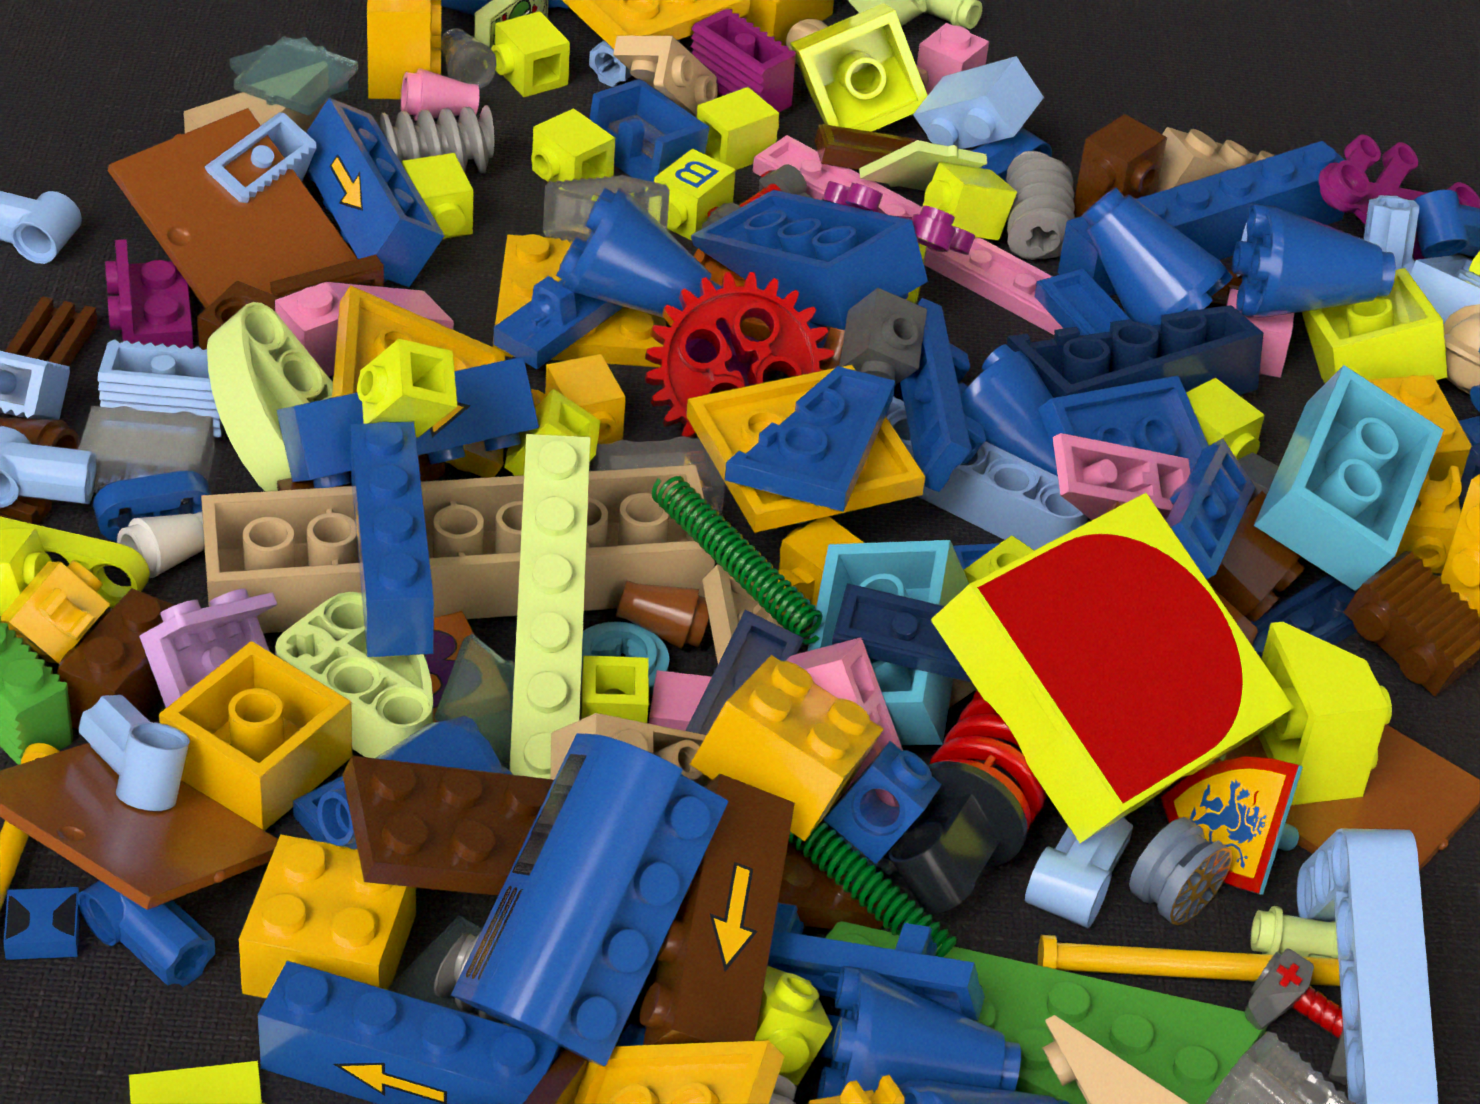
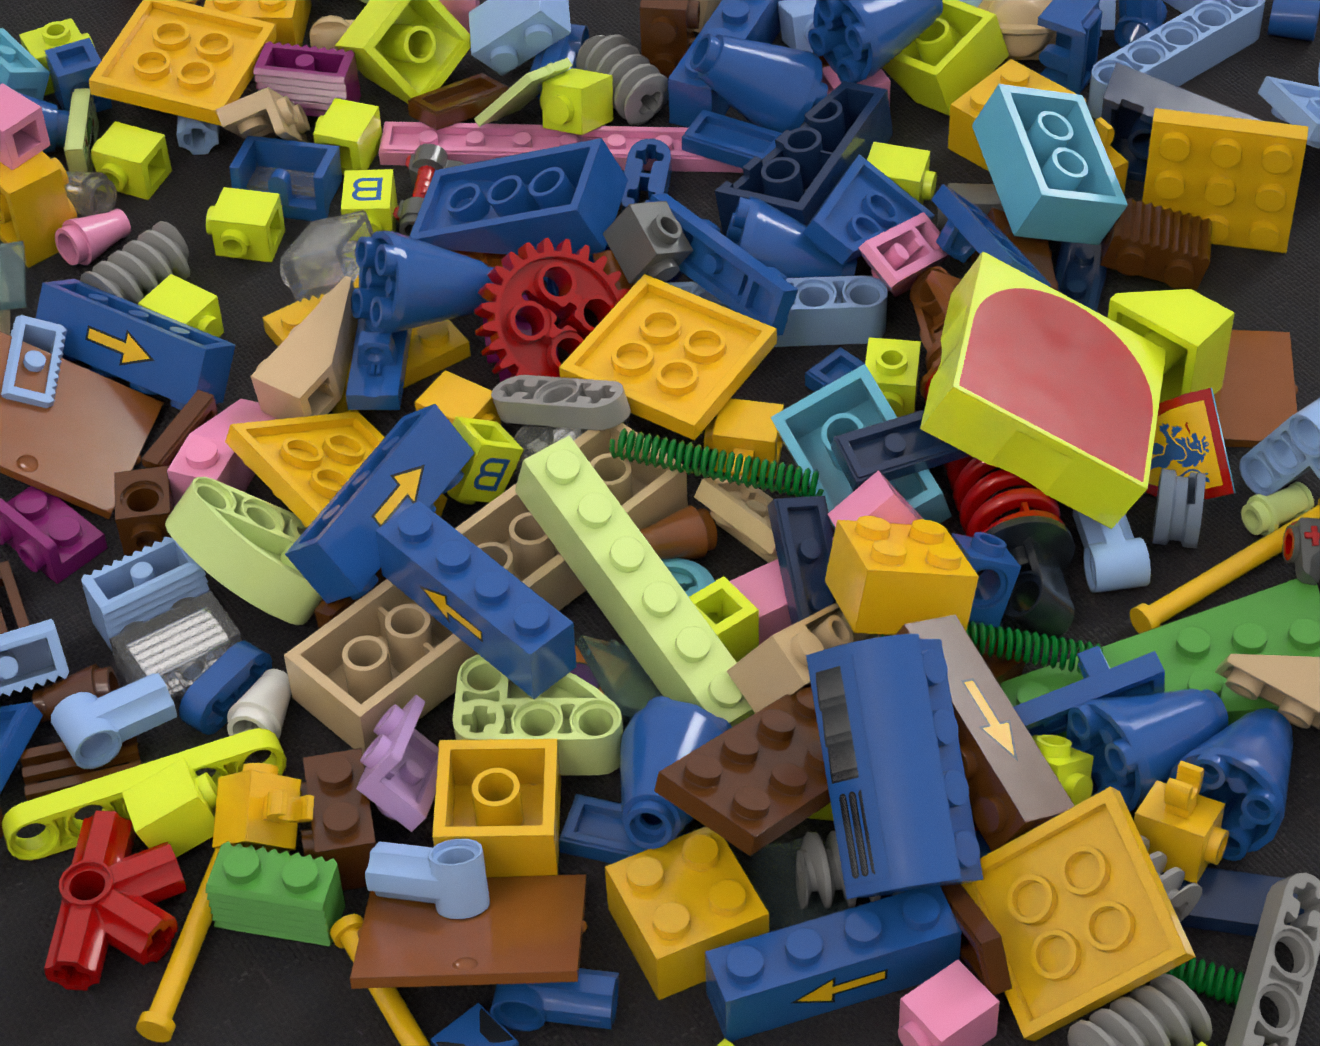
camera: 30 degrees left, 5 degrees up
(408, 385) = (398, 475): neon yellow brick -> none
(490, 282) = (312, 363): none -> tan slope
(665, 432) = (561, 402): none -> light grey beam
(821, 444) = (694, 344): blue wing -> none
(931, 227) = (611, 131): magenta plant -> none
(975, 309) = (638, 181): none -> blue beam

